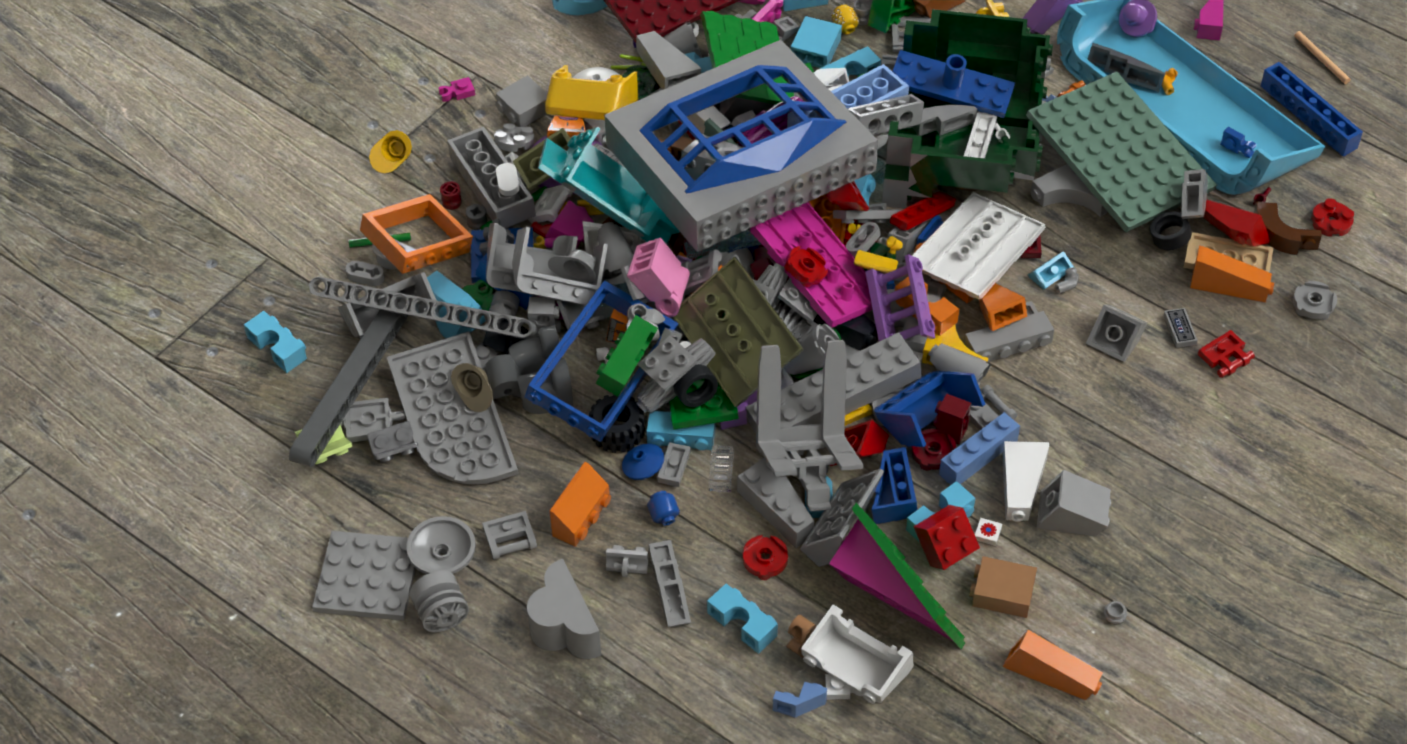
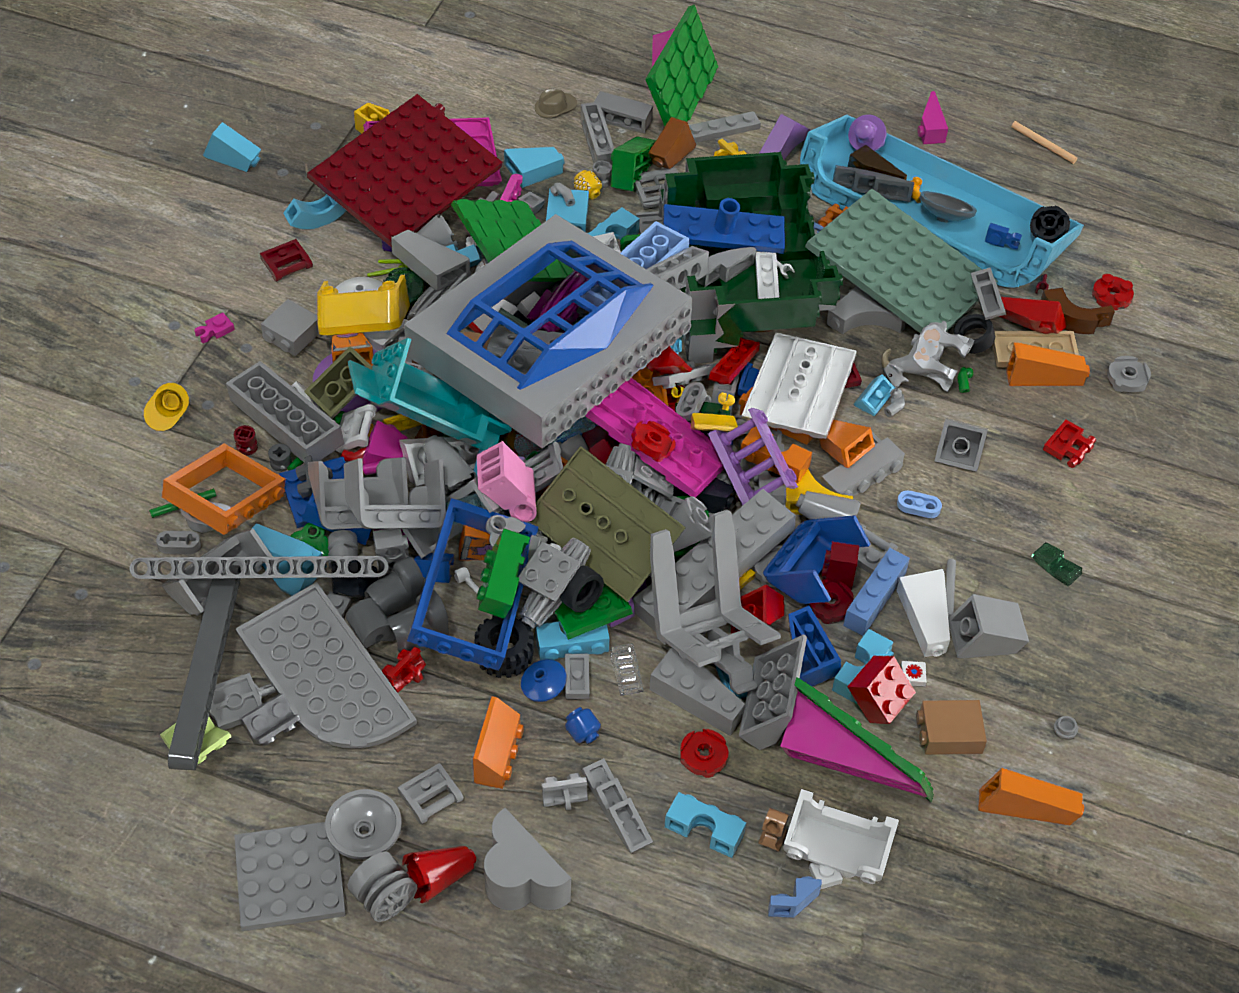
camera: 20 degrees left, 0 degrees up
(266, 330) = (90, 627): medium azure arch -> none
(472, 386) = (343, 641): dark tan piece -> none
(492, 599) = (438, 869): none -> red cone
(507, 179) = (307, 411): white tile -> none
(513, 137) = (293, 366): light grey plate -> none
(523, 425) = (406, 670): none -> red hips
(540, 34) = (284, 255): none -> dark red plate
(575, 266) = (413, 488): light grey piece -> none
(584, 342) = (444, 570): none -> blue brick
(818, 23) = (559, 188): none -> light grey arm
(1048, 475) = (950, 585): none -> light grey bar
(1054, 379) = (920, 504): none -> light blue plate
(1111, 241) = (925, 356): none -> light grey animal
(1130, 44) = (868, 159): none -> dark brown slope
(1143, 270) = (962, 378): none -> green arm
(1167, 464) = (1054, 563): none -> clear green slope
(1180, 327) = (1016, 426): tile -> none
(1191, 102) = (946, 206): none -> dark grey dish
(1288, 137) = (1049, 223): none -> black cone
(1311, 109) = (1056, 191): blue brick -> none

